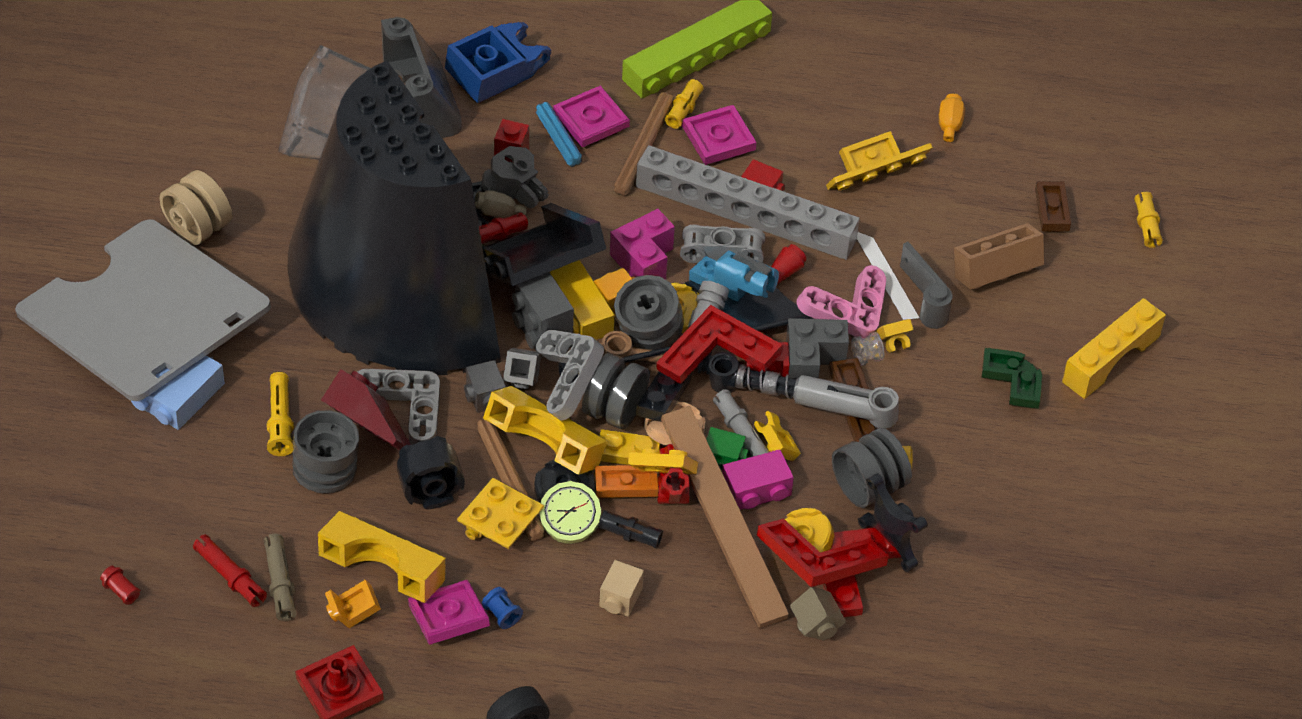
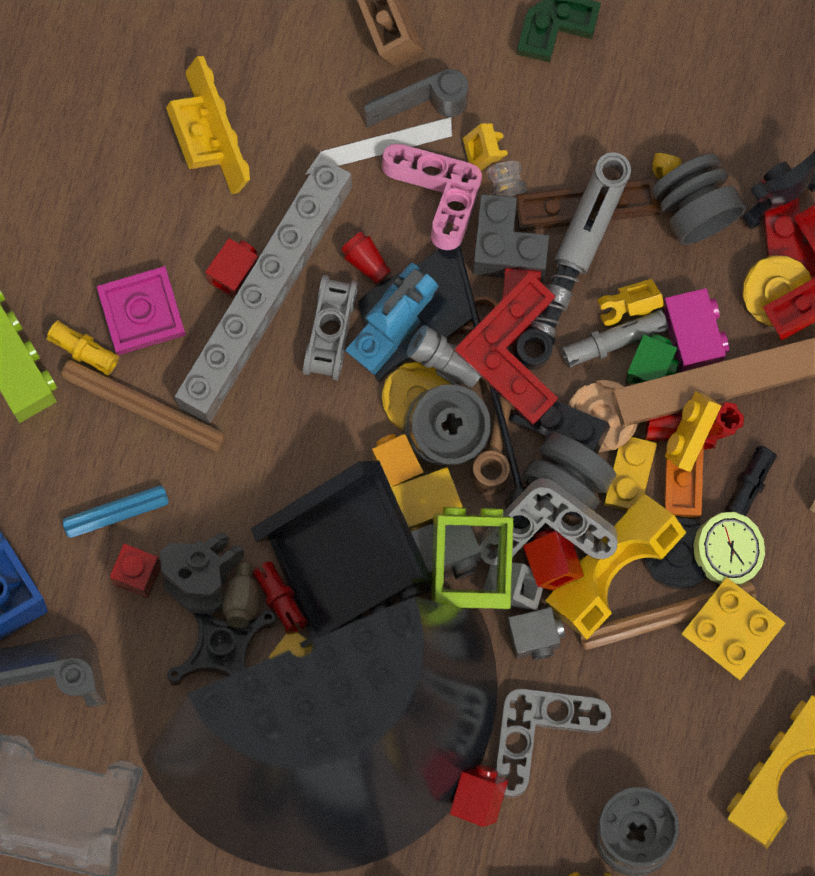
camera: 80 degrees left, 25 degrees up
(349, 353) = (479, 796): none -> red brick
(360, 402) = (586, 775): dark red slope -> none
(430, 473) = (675, 707): black brick -> none
(524, 285) = (463, 598): none -> lime window
(539, 376) = (553, 560): none -> red brick
(591, 116) = (91, 466): dark pink plate -> none
(643, 244) = (330, 431): dark pink brick -> none
(951, 116) = (137, 27): light orange plant -> none

